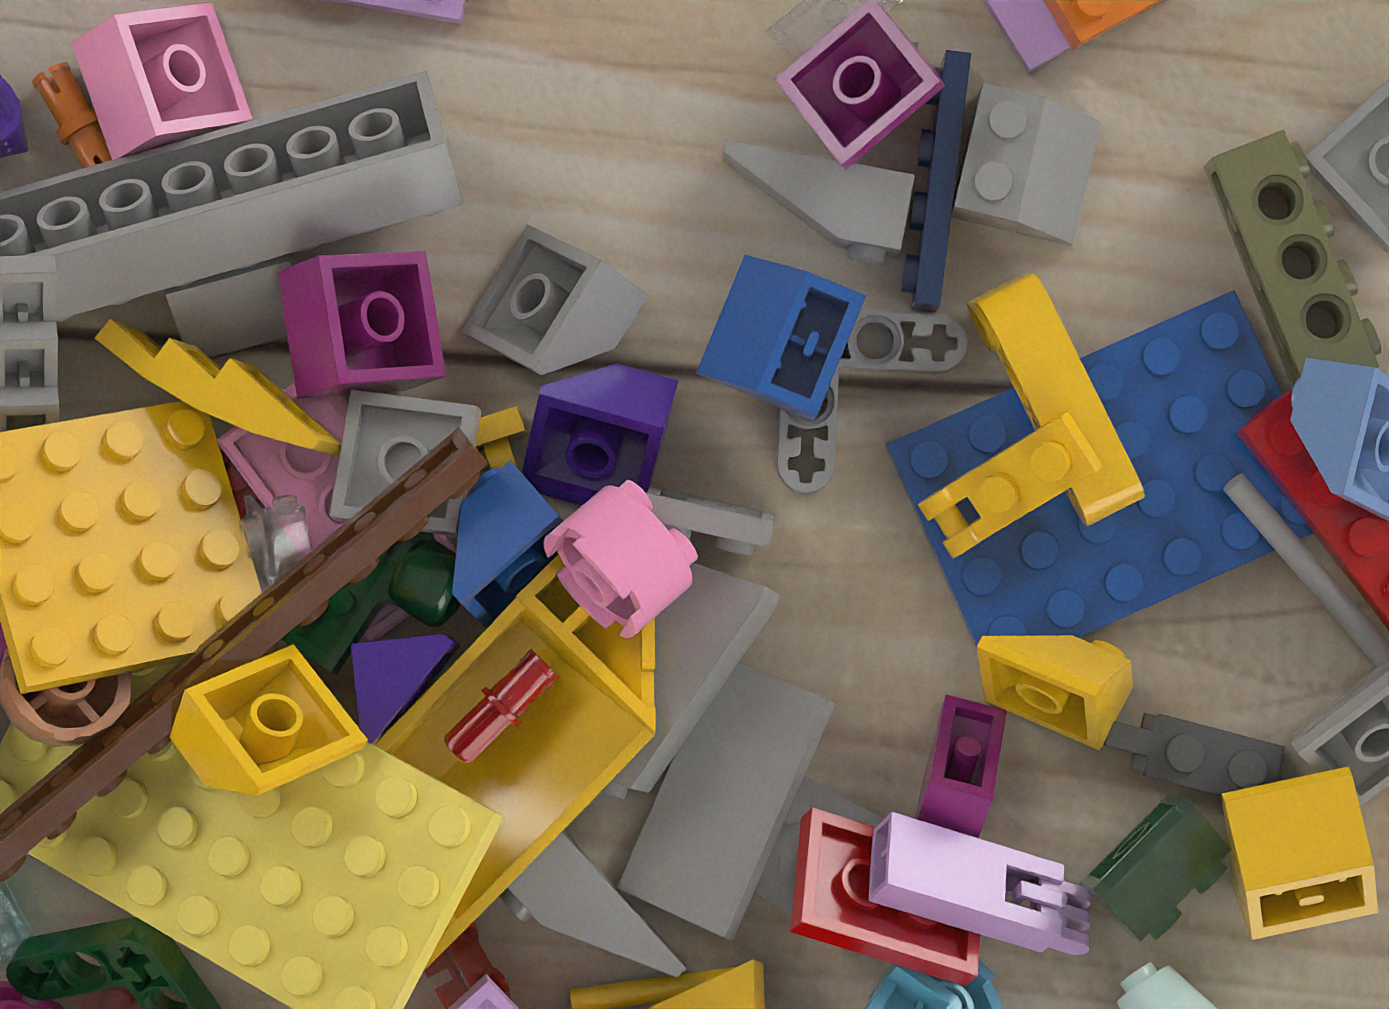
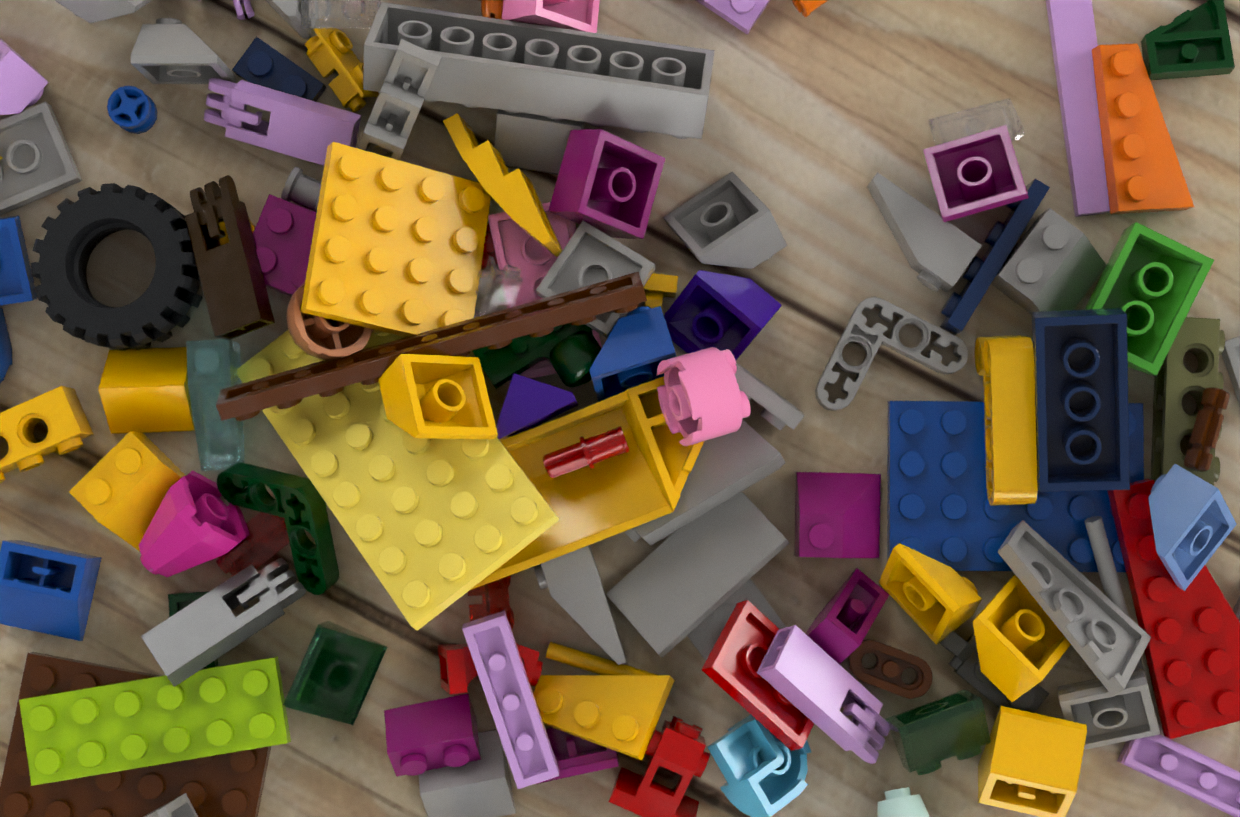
camera: 30 degrees right, 0 degrees up
(781, 335) = (858, 305): blue slope -> none
(886, 633) = (837, 515): none -> magenta slope
(1012, 483) = (959, 458): yellow plate -> none
(1052, 812) = (889, 668): none -> reddish brown plate
(1139, 329) = (1081, 400): none -> dark blue brick
(1165, 151) = (1155, 287): none -> bright green slope
(1205, 687) = (1016, 640): none -> yellow slope
(1281, 619) = (1084, 615): none -> light grey wing
(1331, 289) = (1206, 429): none -> reddish brown axle

